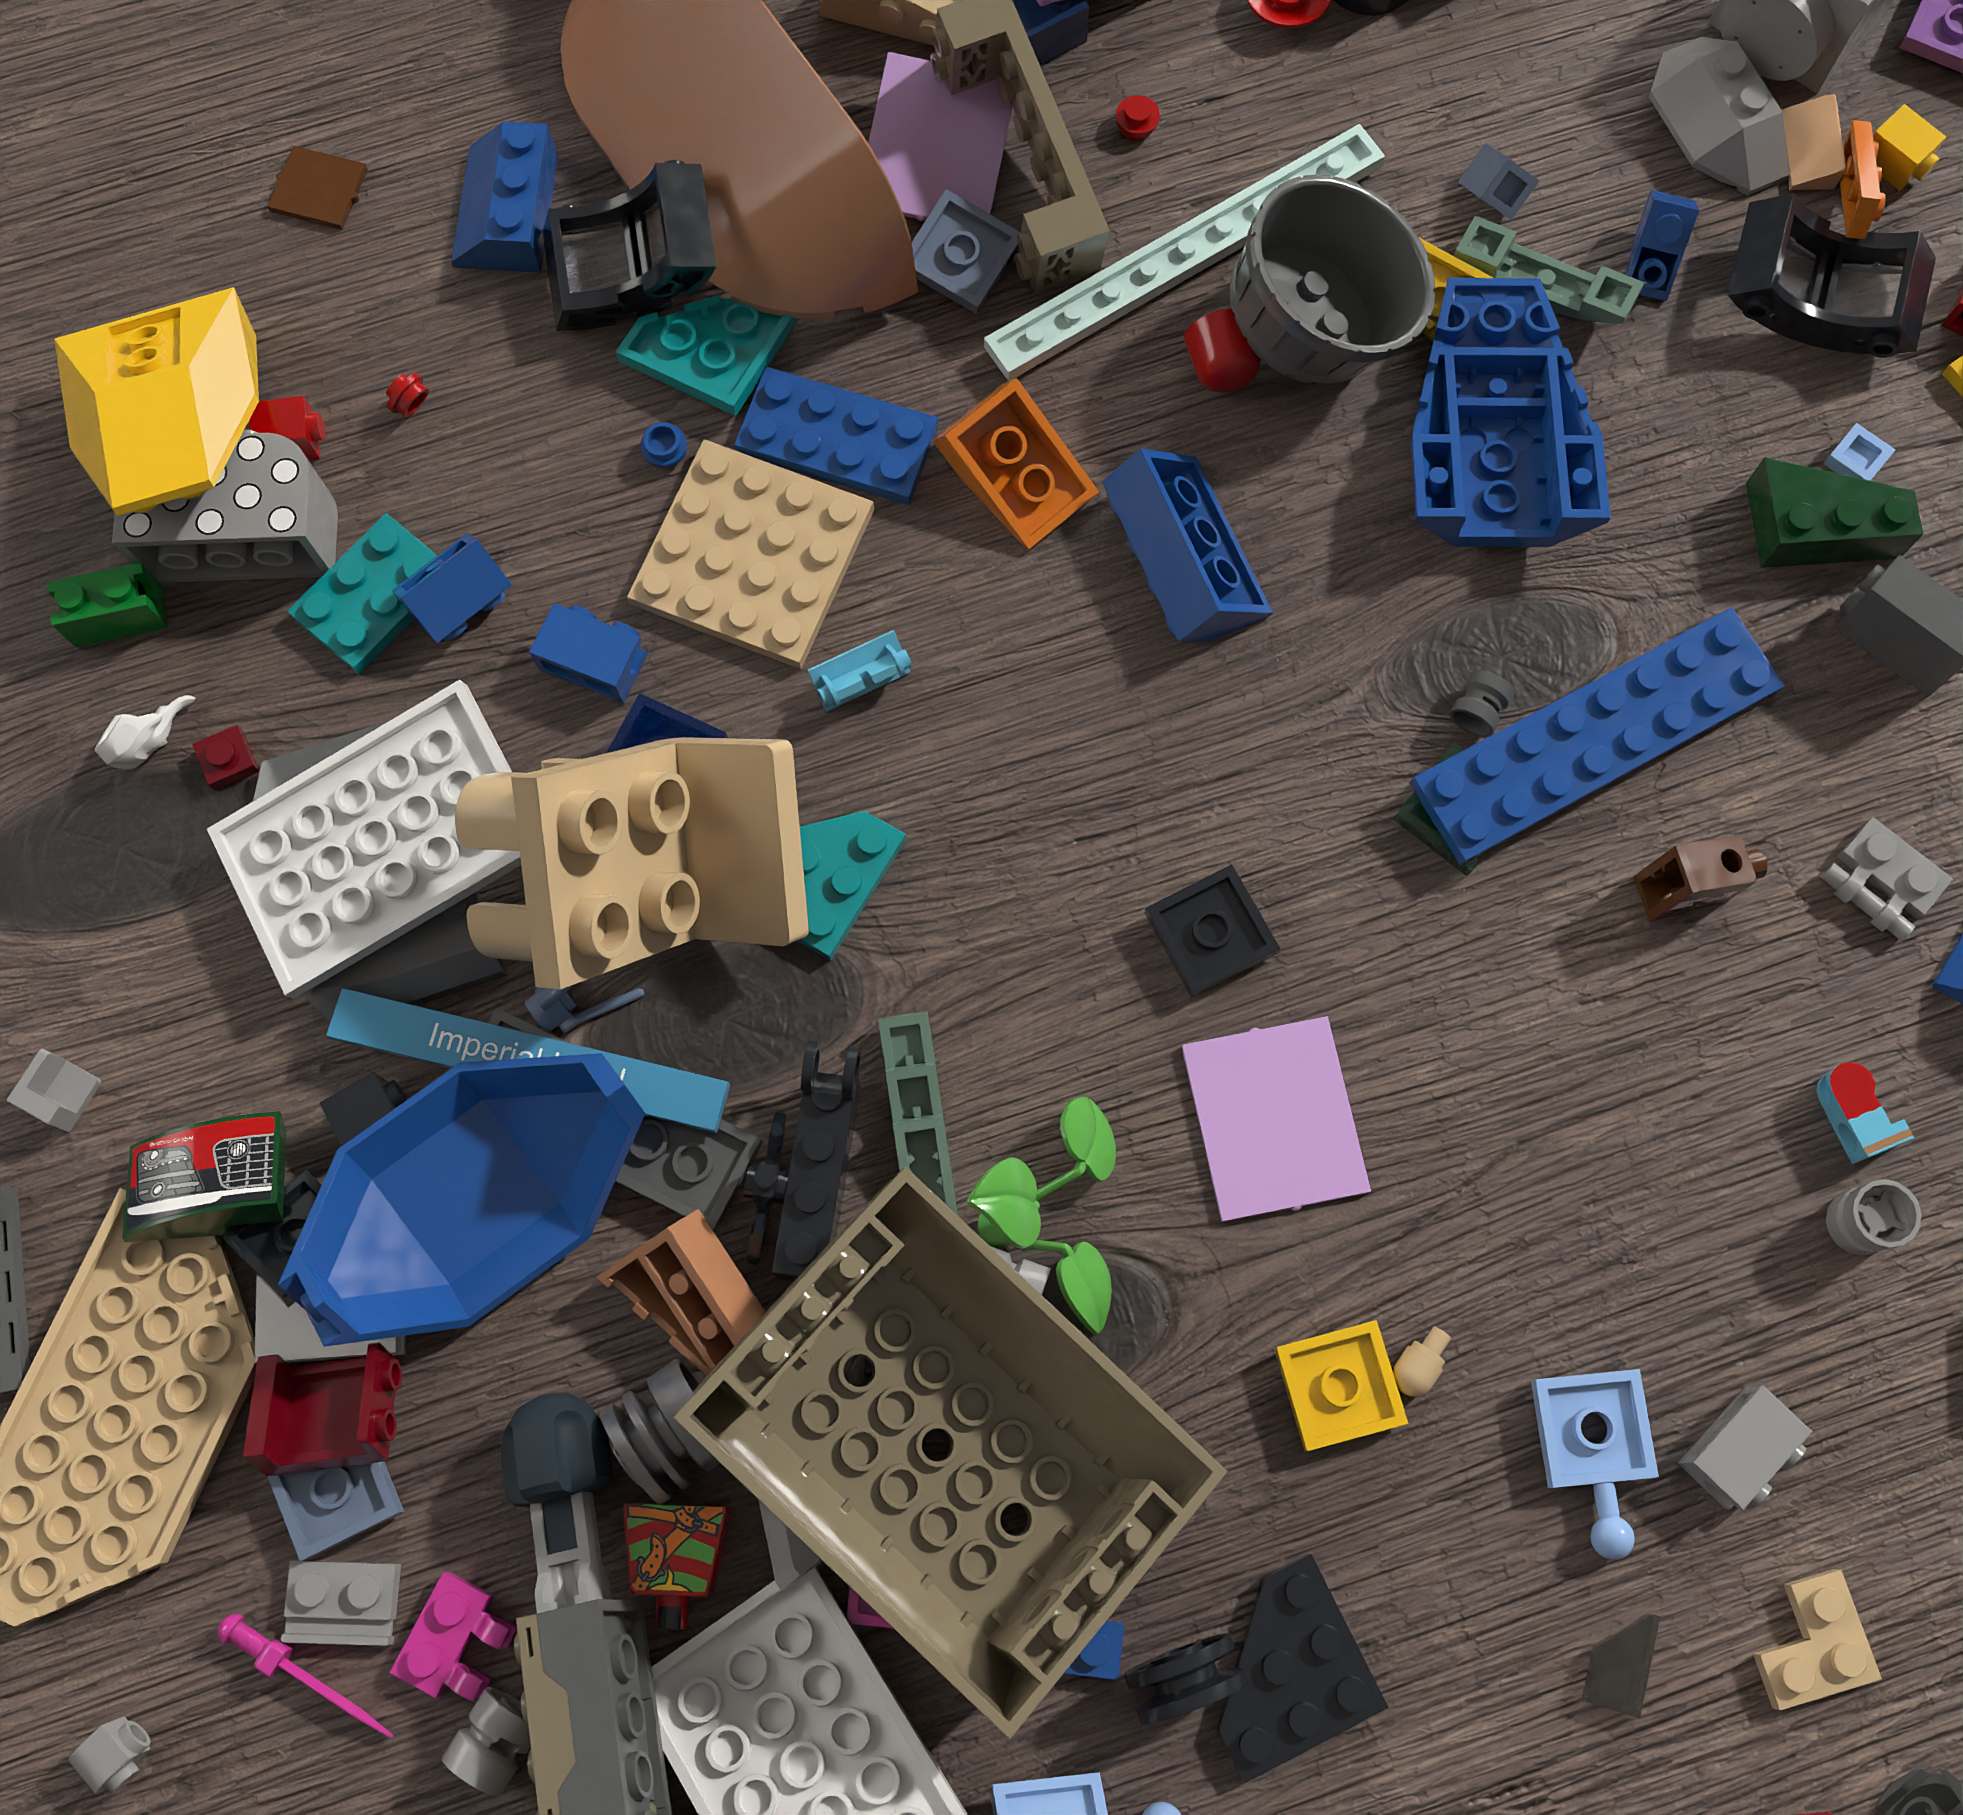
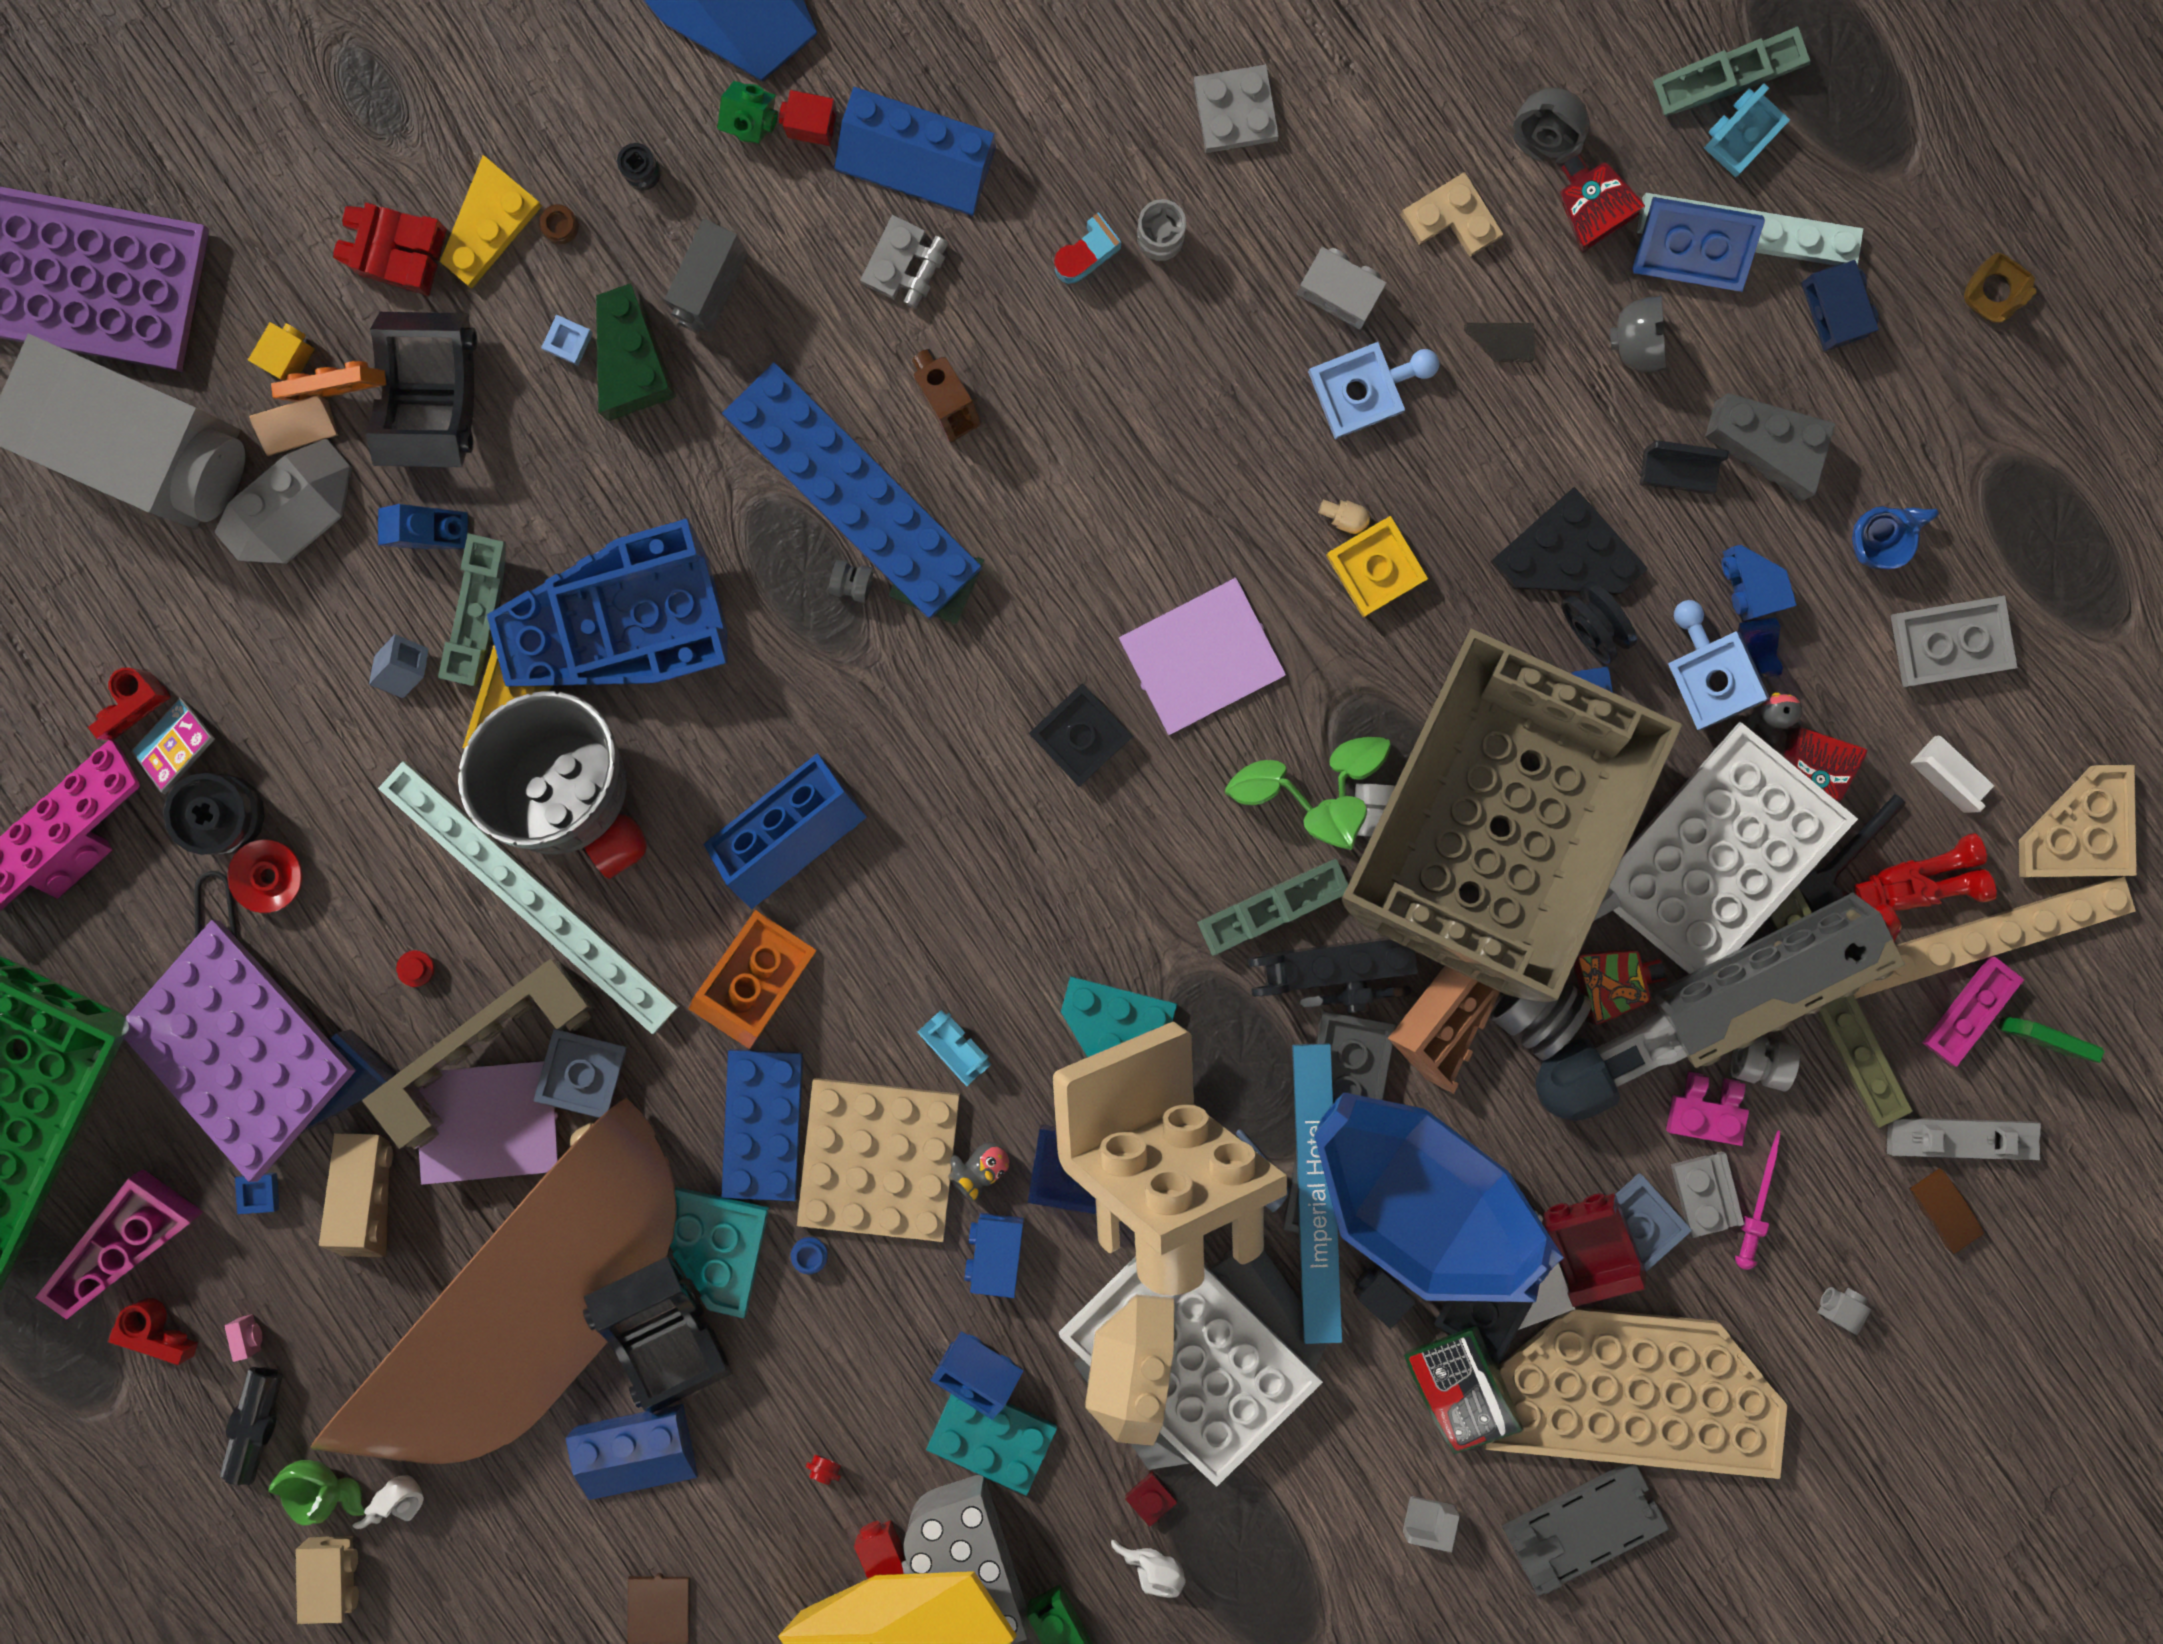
camera: 110 degrees left, 15 degrees up
(387, 751) = (1133, 1370): none -> tan wedge
(698, 661) = (983, 1168): none -> animal

